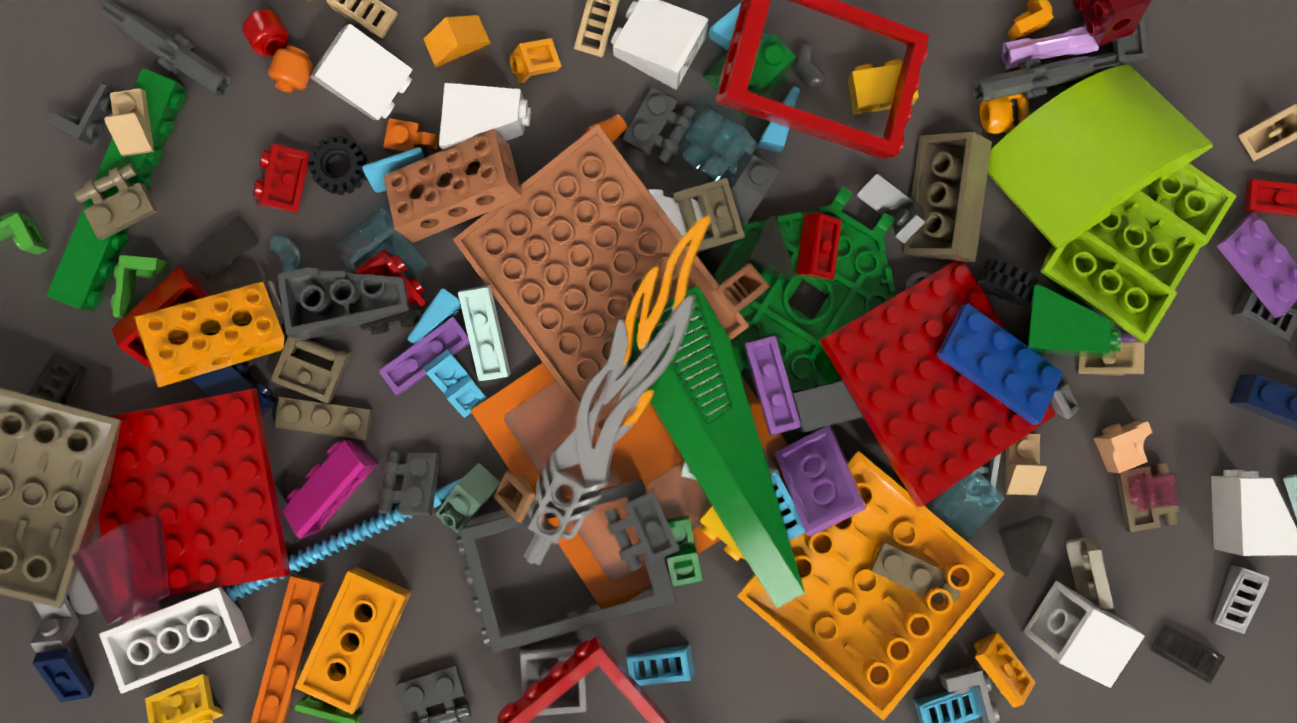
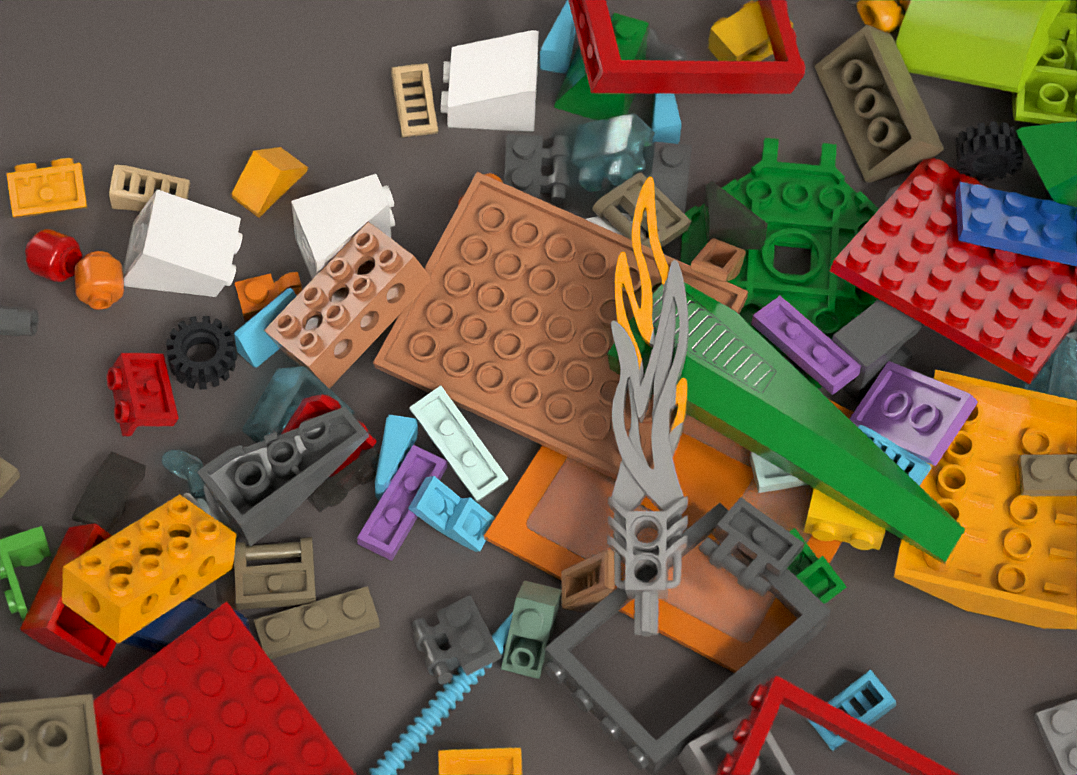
camera: 25 degrees left, 25 degrees down
(327, 488) = (364, 683): dark pink slope -> none
(534, 59) = (365, 158): light orange bracket -> none
(818, 246) = (773, 199): red slope -> none
(888, 198) = (812, 129): bracket -> none

